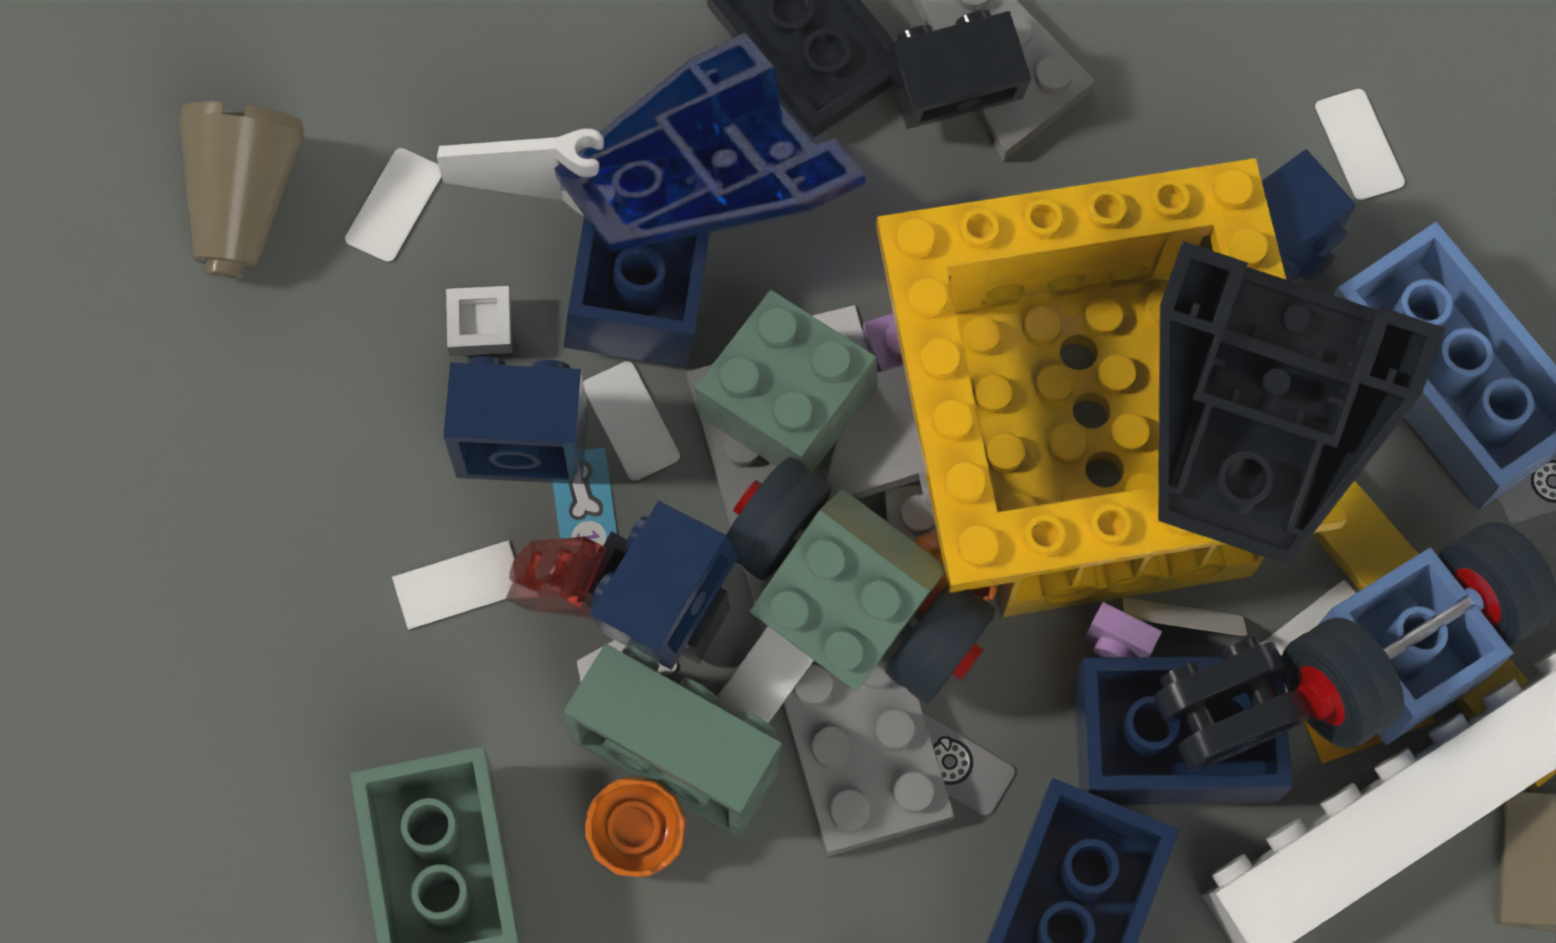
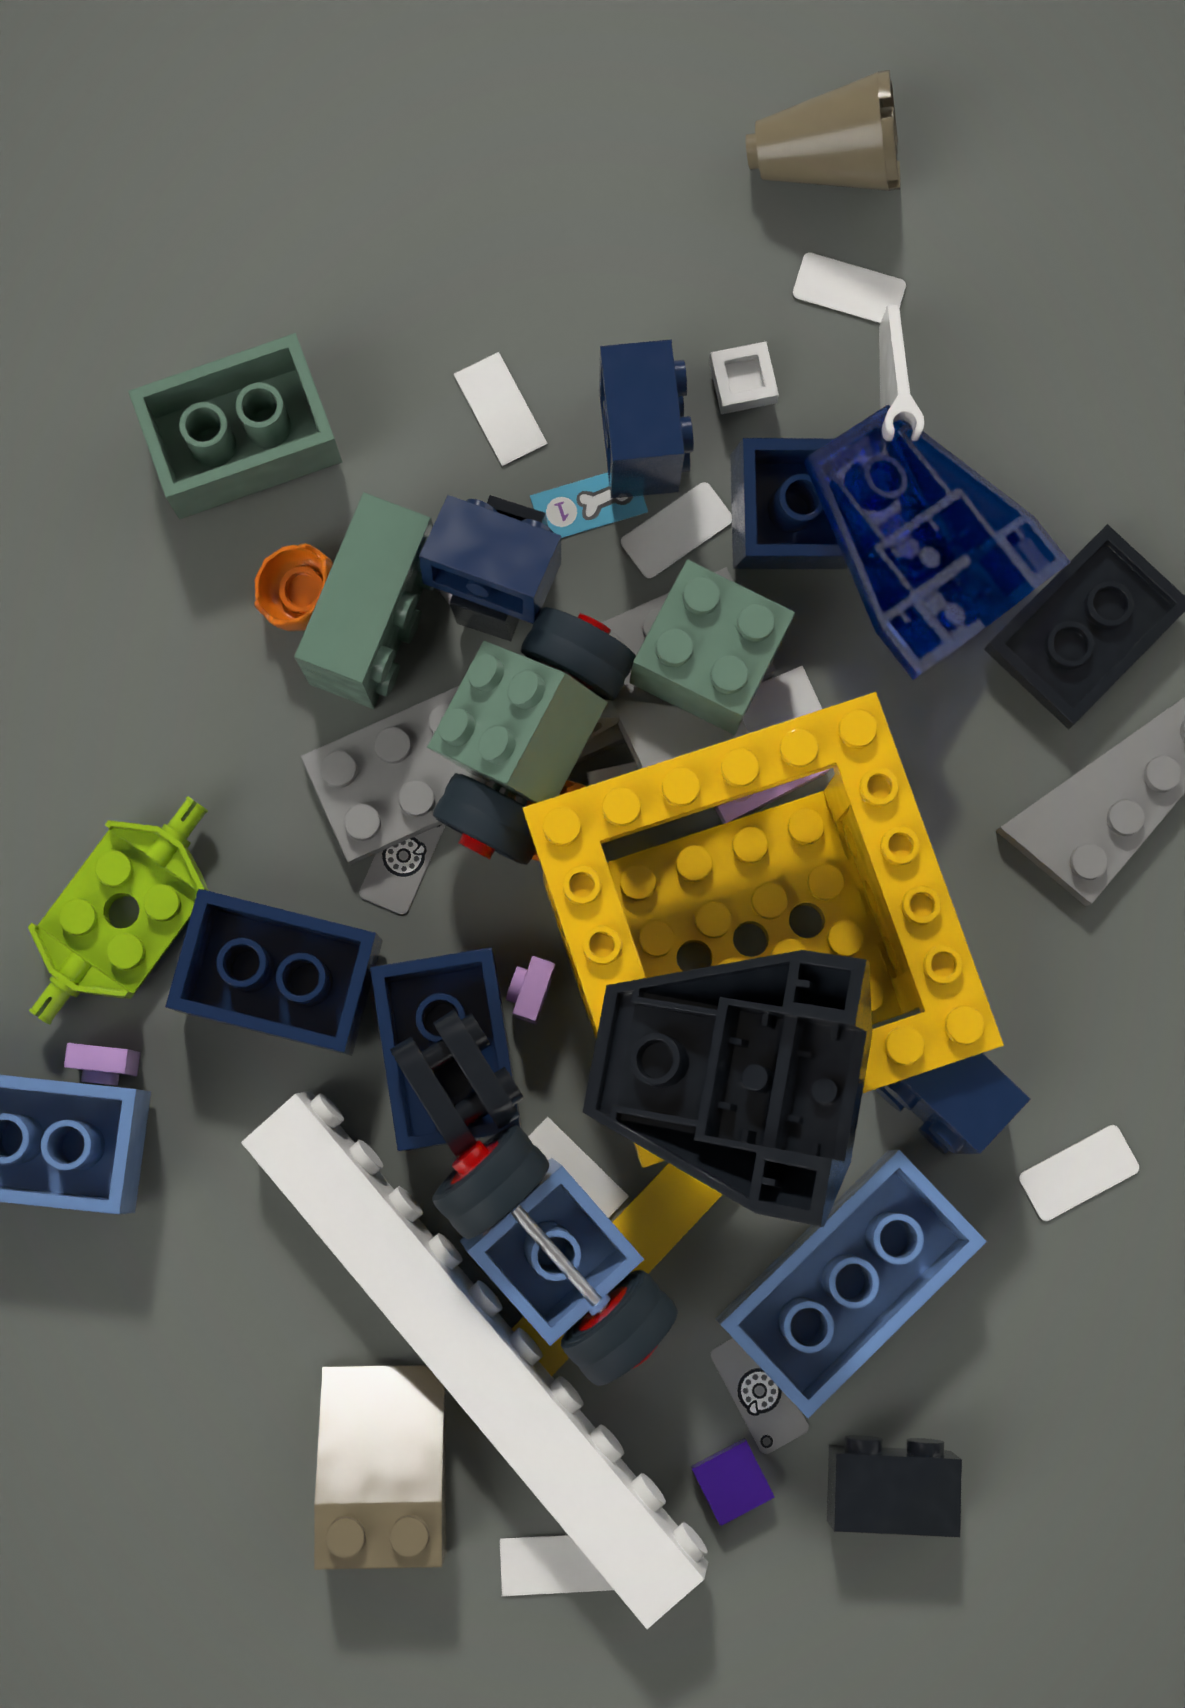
camera: 80 degrees right, 10 degrees up
(554, 573) = (506, 475): clear red plate -> none
(764, 677) = (434, 673): white sticker -> none
(957, 68) = (1069, 762): black brick -> none
(1185, 616) = (563, 1047): white sticker -> none

